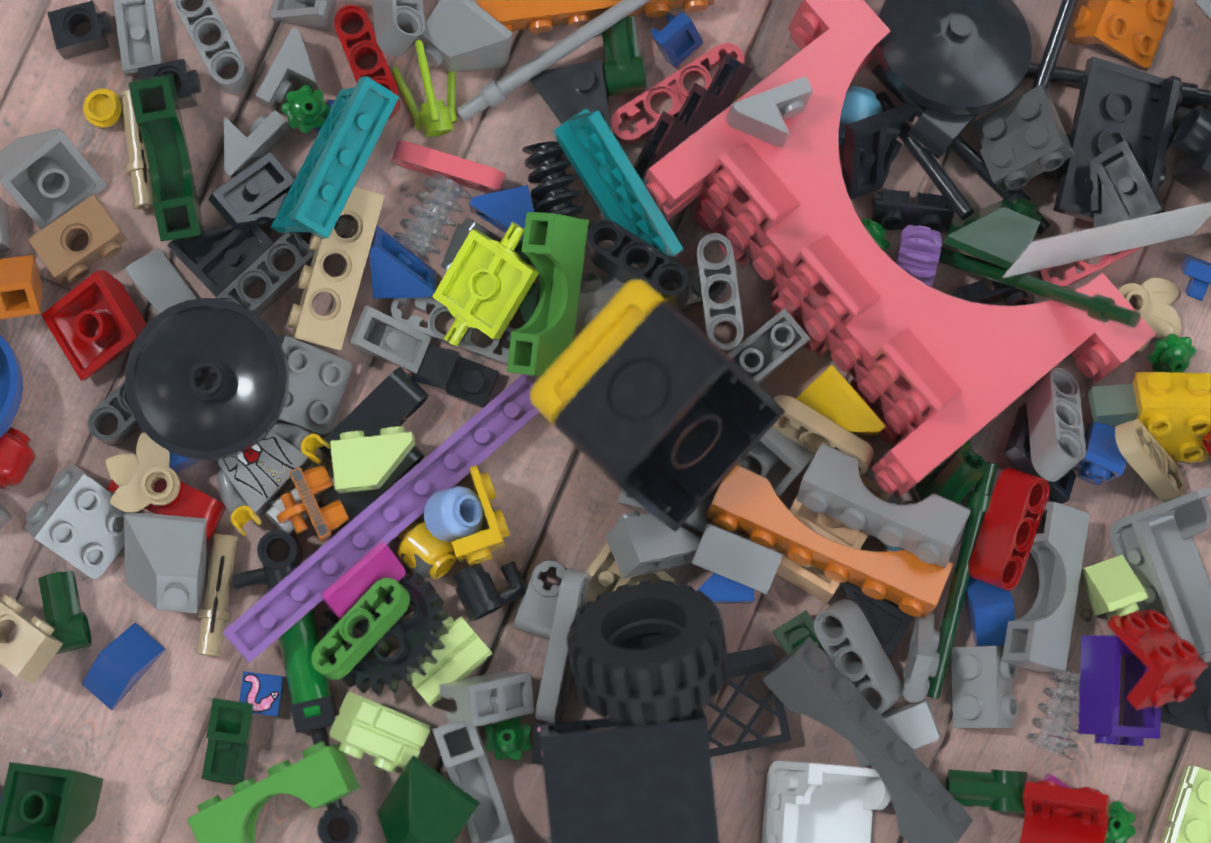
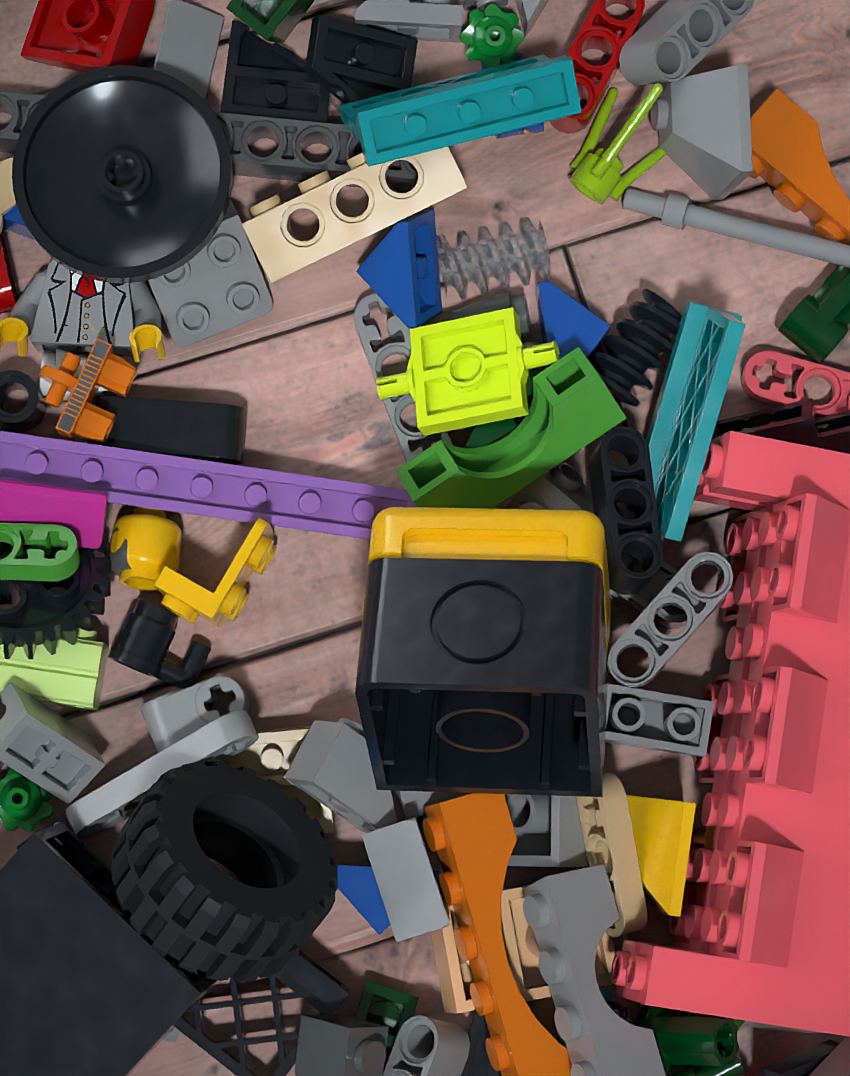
camera: 45 degrees right, 0 degrees up
(368, 462) = (179, 410): yellowish green slope -> none
(384, 407) = (239, 378): black beam -> none
(389, 340) = (328, 324): light grey slope -> none
(453, 513) = (199, 543): light blue head -> none
(455, 168) = (560, 231): coral beam -> none
(456, 376) = (350, 424): black slope -> none
(574, 89) = (757, 290): black wing -> none

